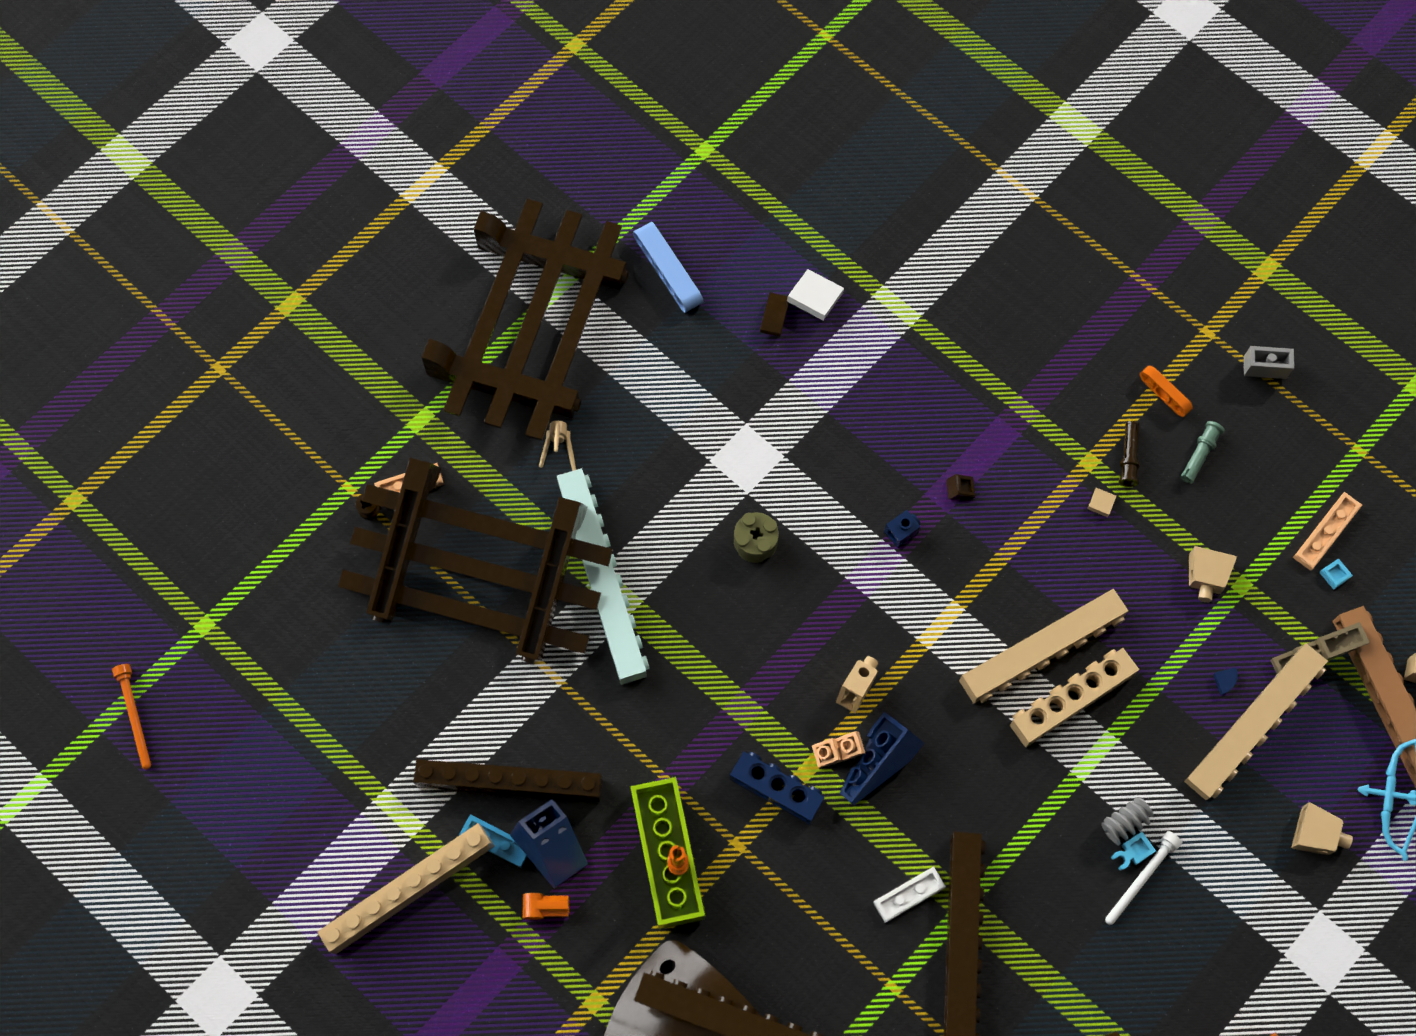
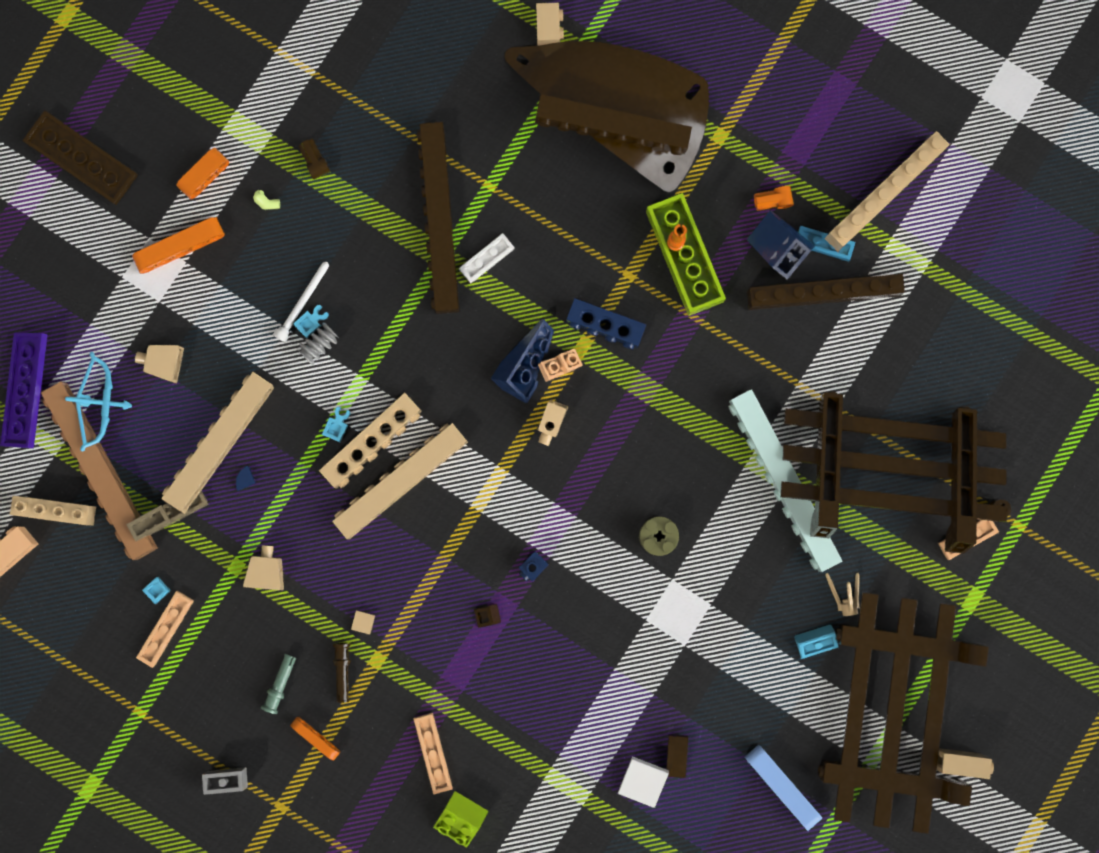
camera: 175 degrees right, 15 degrees up
(474, 256) = (964, 763): none -> tan brick
(601, 404) = (816, 641): none -> medium azure slope
(1015, 288) = (460, 819): none -> lime slope
(1038, 359) = (433, 753): none -> light nougat tile
(1113, 720) = (335, 427): none -> medium azure plate
(1184, 1016) = (264, 202): none -> yellowish green arm
(1292, 974) = (178, 245): none -> orange beam

